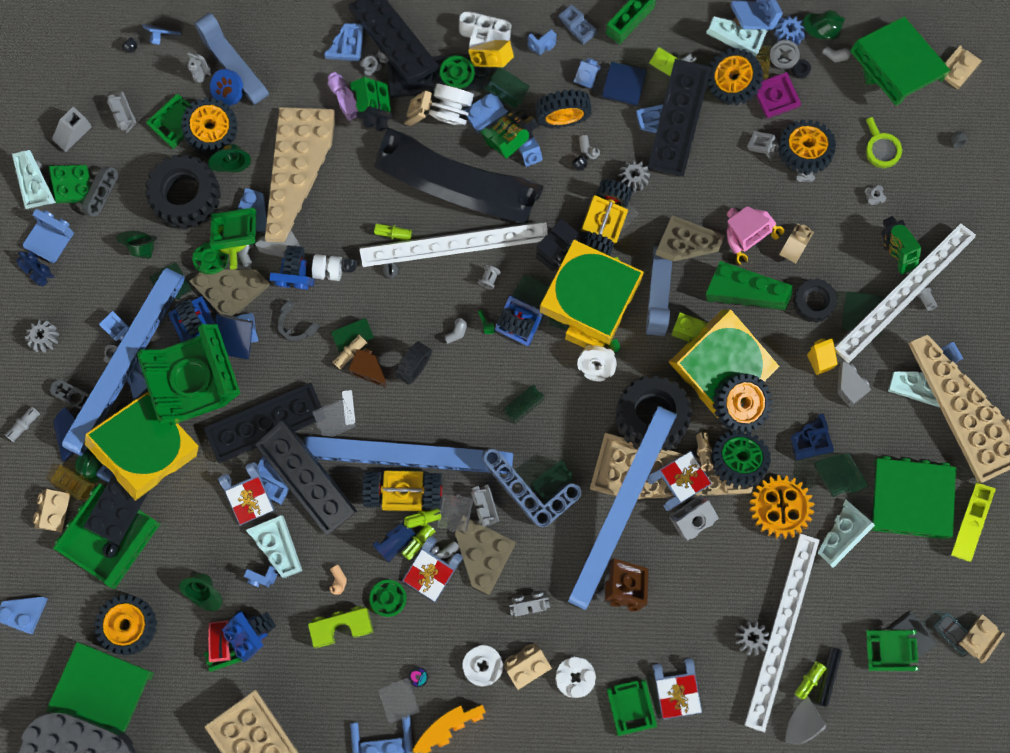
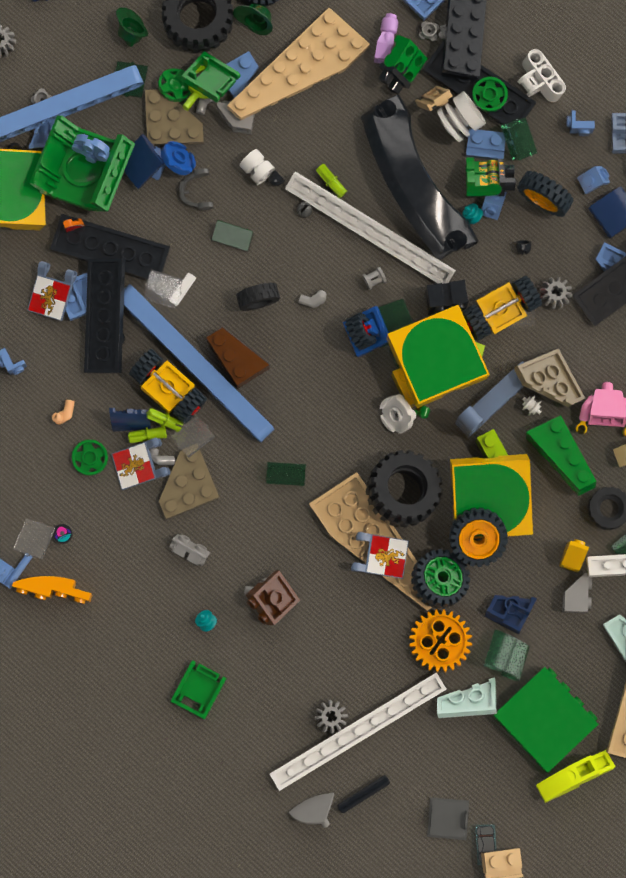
camera: 35 degrees right, 5 degrees up
(114, 326) = (59, 78): medium blue bracket -> none
(186, 356) = (93, 150): none -> medium blue plate
(189, 317) = (121, 119): plate -> none
(218, 430) = (72, 225): none -> orange tile
(260, 311) = (178, 158): none -> blue tile
(277, 544) = (42, 349): light aqua wing -> none
(293, 270) = (228, 147): plate -> none
(323, 629) = (22, 440): lime arch -> none
(349, 352) = (218, 247): tan pin -> none
(367, 367) = (222, 270): reddish brown slope -> none
(436, 424) = (236, 358): none -> reddish brown wedge
(486, 511) = (216, 457): light grey hinge -> none
(488, 327) = (339, 316): green hand -> none
(491, 54) = (528, 102): yellow slope -> none
(492, 660) = (106, 561): white plate -> none
(521, 169) = (472, 213): none -> teal wheel
(524, 404) = (316, 398): clear green hinge -> none
(525, 491) = (257, 466): sand blue beam -> none
(526, 665) = (148, 593): tan bracket -> none
(587, 150) = (538, 240): light grey arm -> none
(587, 677) = (185, 639): white plate -> none
(590, 647) = (206, 620): none -> teal wheel
(622, 507) = (317, 538): medium blue beam -> none
(678, 693) = (242, 710): flag -> none
(684, 517) = (359, 585): light grey brick -> none
(690, 273) = (531, 405): none -> white wheel
(704, 451) = (418, 550): tan pin -> none
(810, 680) = (346, 784): lime axle -> none
(895, 648) = (430, 817): green container -> none

